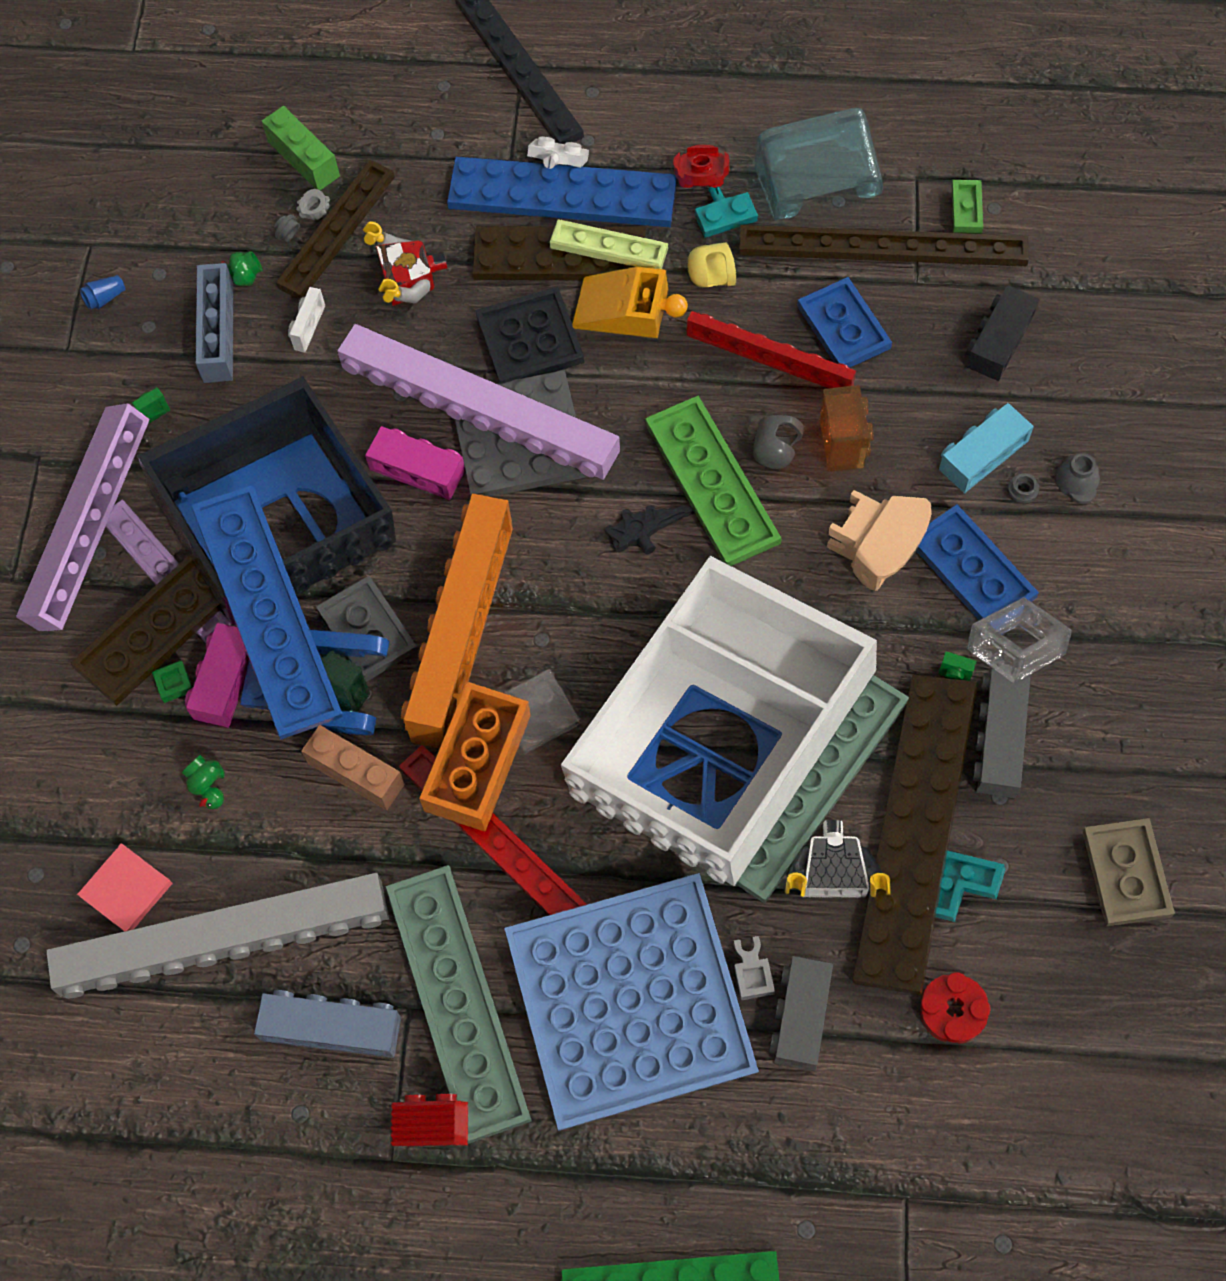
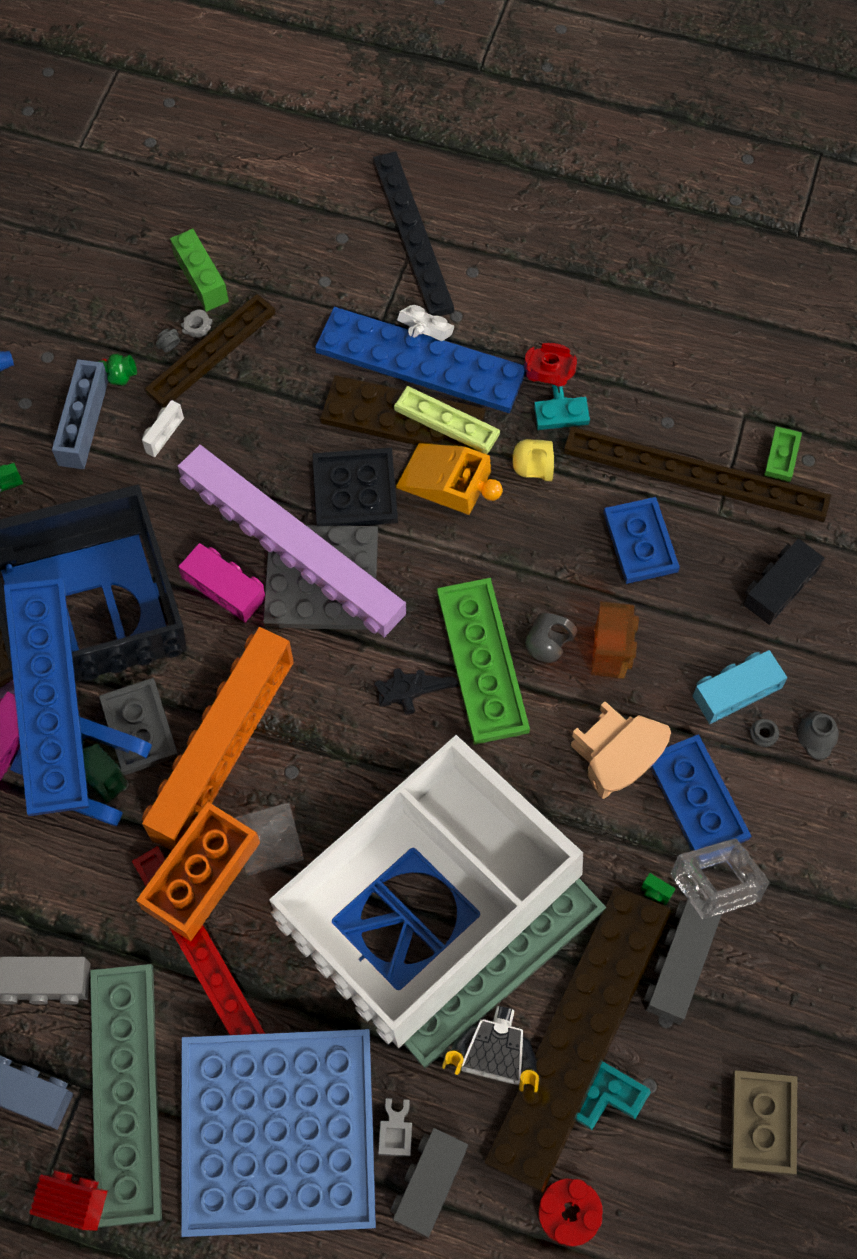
camera: 10 degrees right, 0 degrees up
(353, 767) = (91, 853): nougat brick -> none
(404, 266) = (260, 398): torso -> none
(769, 352) = (574, 557): red plate -> none
(816, 160) = (656, 382): clear light blue windscreen -> none

